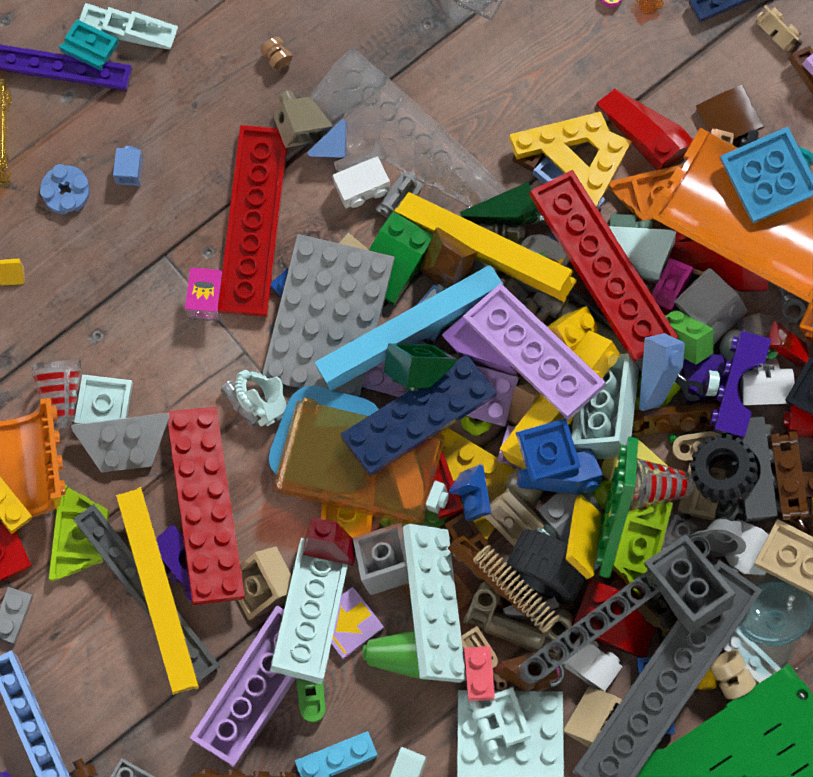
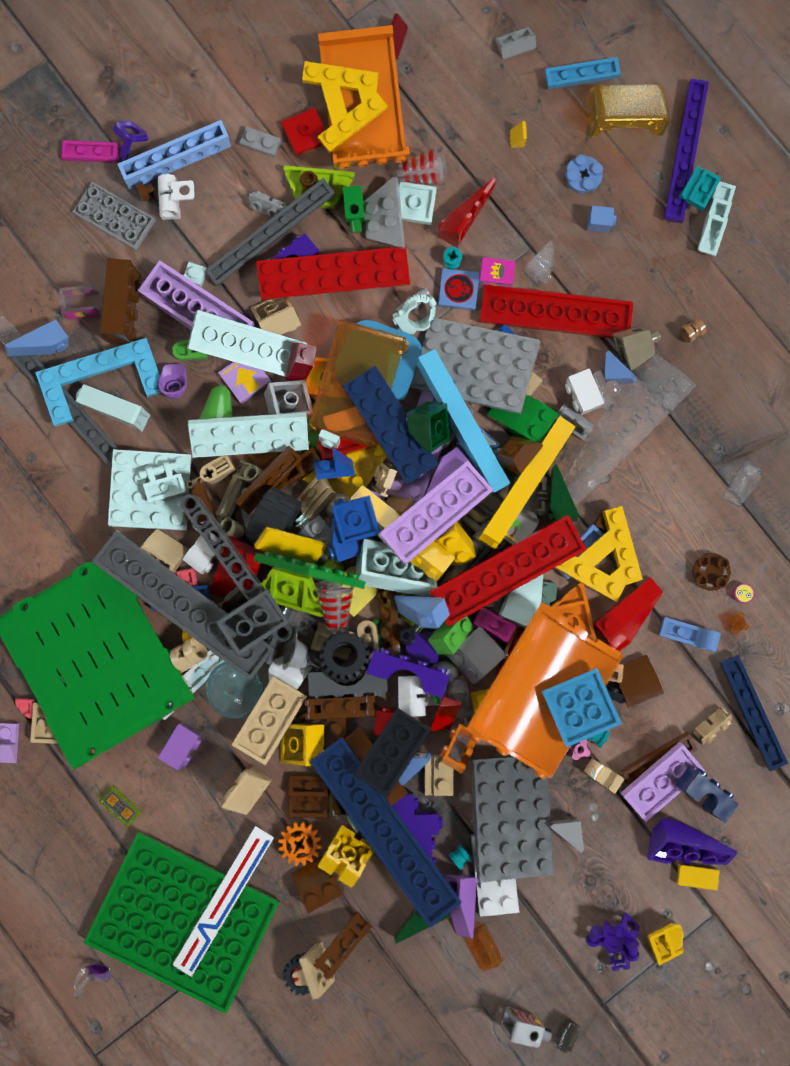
camera: 85 degrees right, 10 degrees up
(70, 535) = (308, 175): none -> reddish brown plate
(90, 732) = (170, 196): none -> white piece
(101, 611) = (261, 203): none -> light grey hinge
(103, 482) = (354, 202): none -> green torso
(132, 341) = (460, 220): none -> red wedge
(157, 591) = (266, 237): yellow tile -> none
(183, 357) = (452, 262): none -> teal wheel
(191, 239) = (541, 266): none -> clear slope
(202, 698) = (195, 273): none -> light aqua plate
(222, 344) = (458, 289): none -> tile
(353, 715) = (173, 381): none -> medium lavender cap
(477, 558) = (245, 498): tan piece -> none
(479, 673) = (196, 467): coral plate -> none
(486, 427) = (384, 476): none -> tan plate
(586, 31) = (711, 571): none -> reddish brown dish
(623, 685) = (189, 576): none -> coral tile
(667, 56) = (689, 634): none -> medium blue plate
(711, 383) = (412, 651): light aqua tile -> none
(766, 302) = (477, 698): none -> yellow plate

